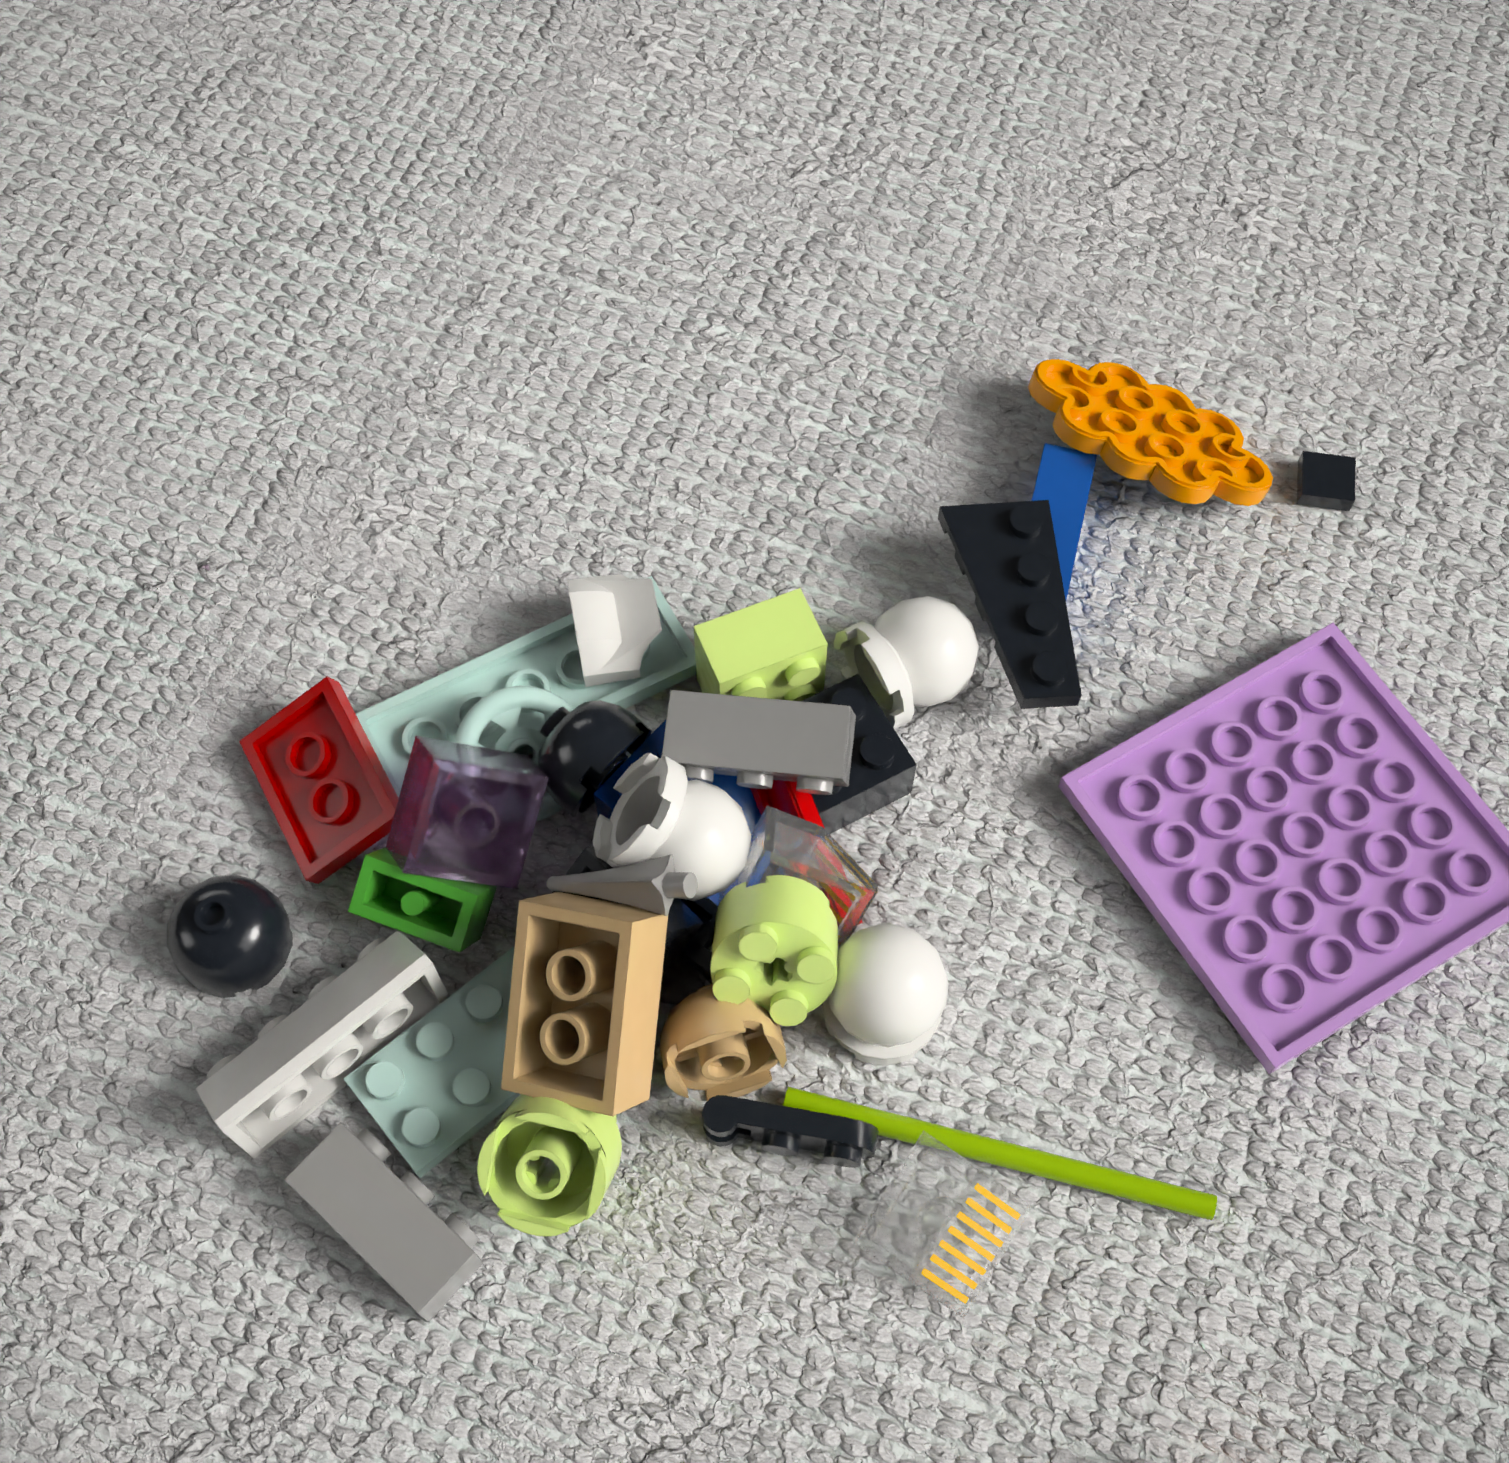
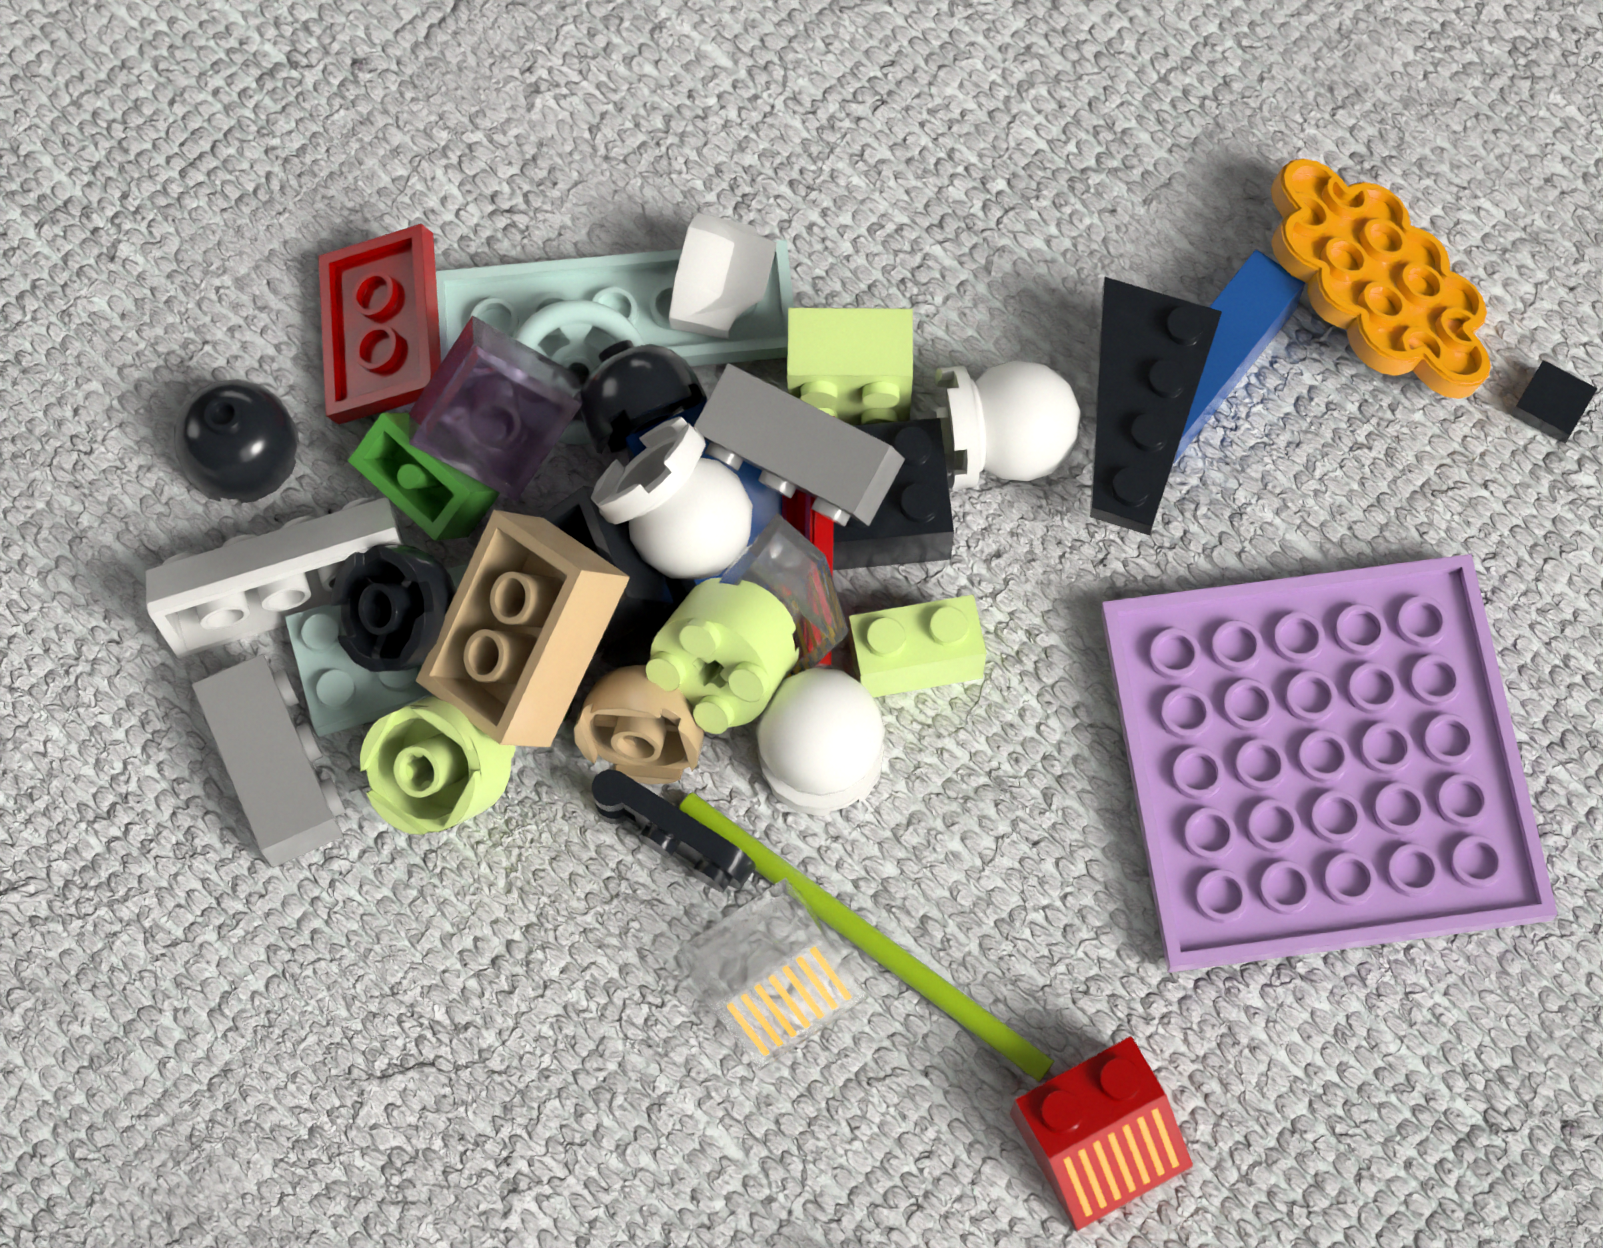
camera: 25 degrees right, 5 degrees up
(450, 1029) = (391, 606): none -> black cylinder
(644, 885) = (615, 540): light grey piece -> none
(930, 874) = (917, 646): none -> yellowish green brick
(1291, 1242) = (1102, 1133): none -> red slope

